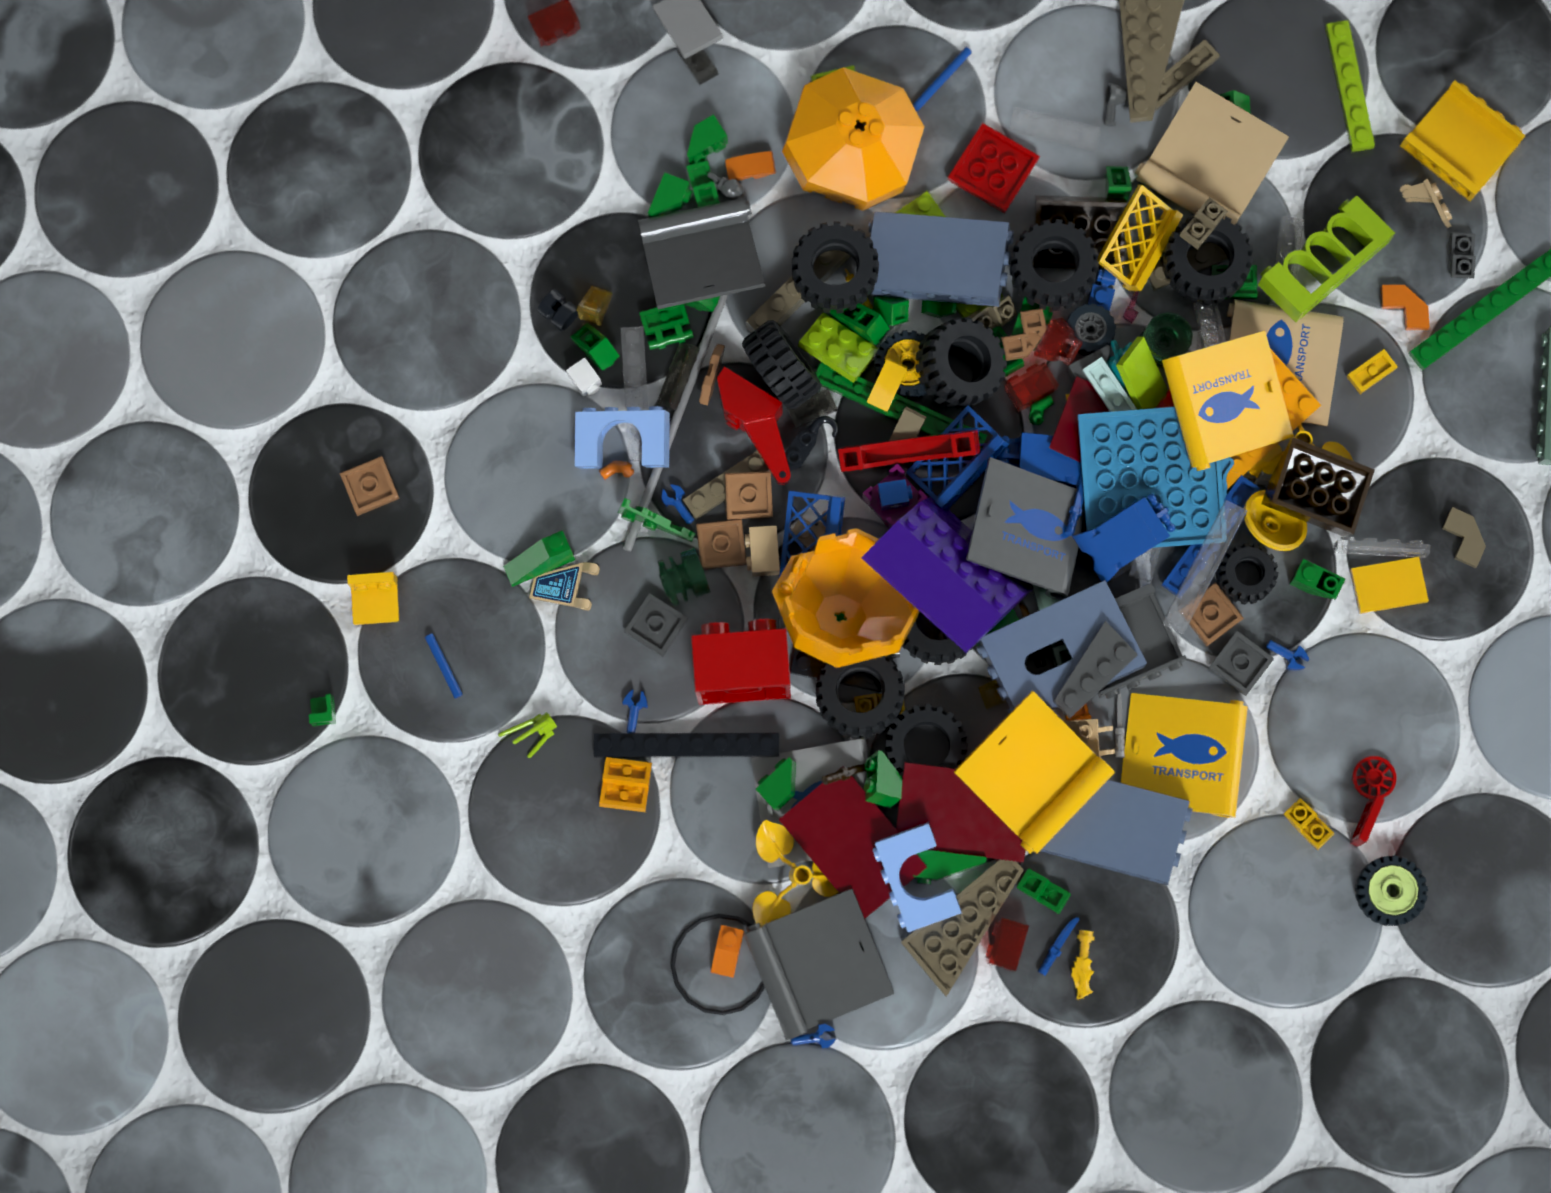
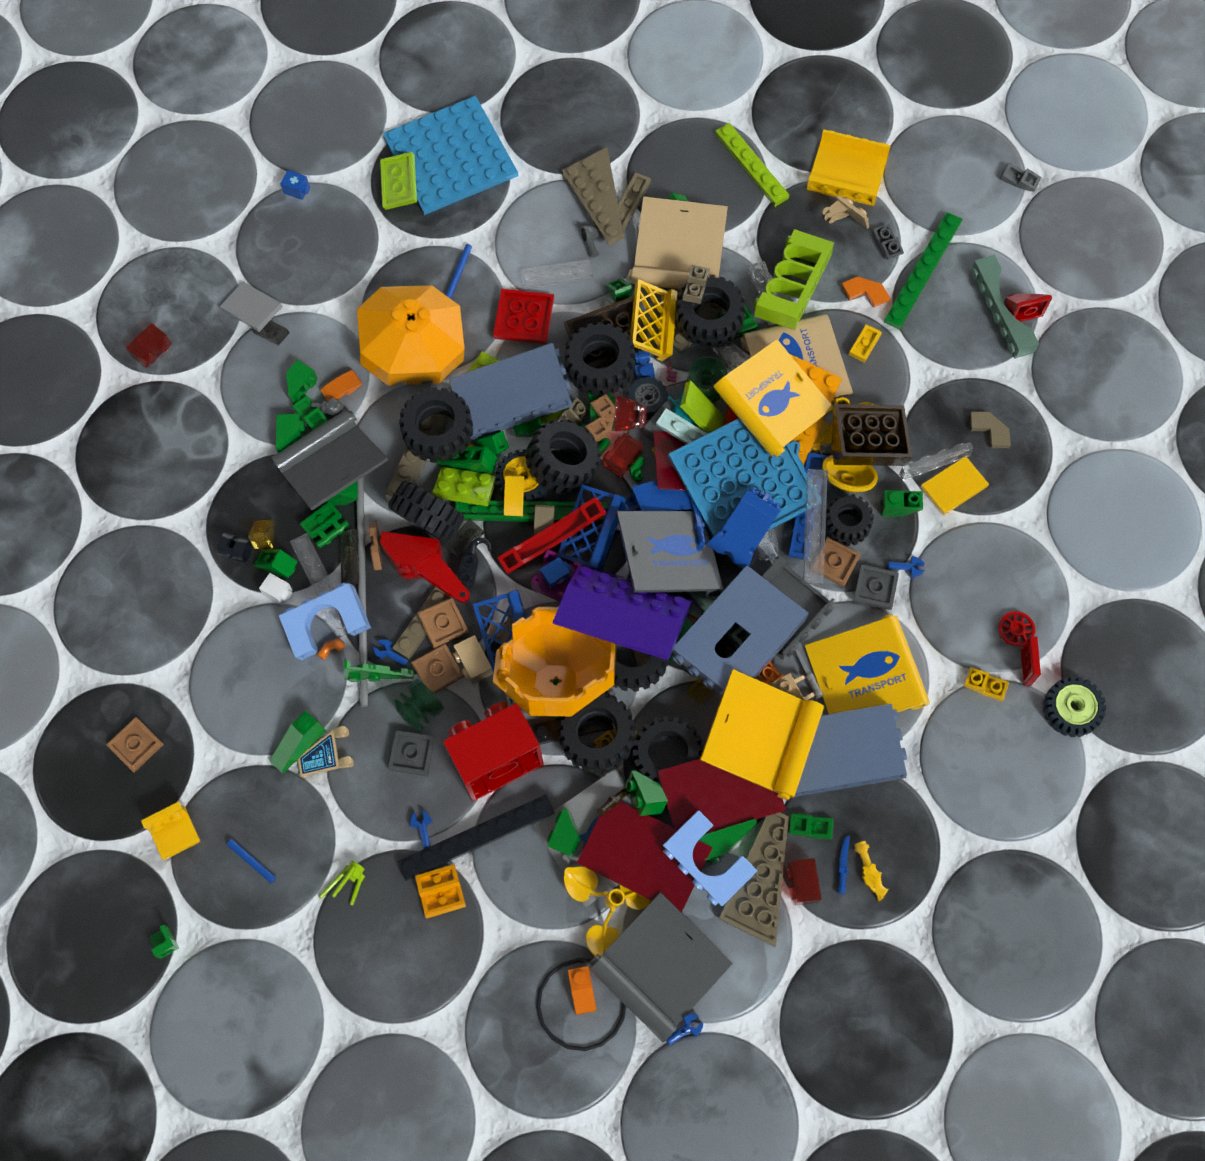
camera: 25 degrees left, 10 degrees down
(1098, 666) = (772, 632): dark grey wing -> none

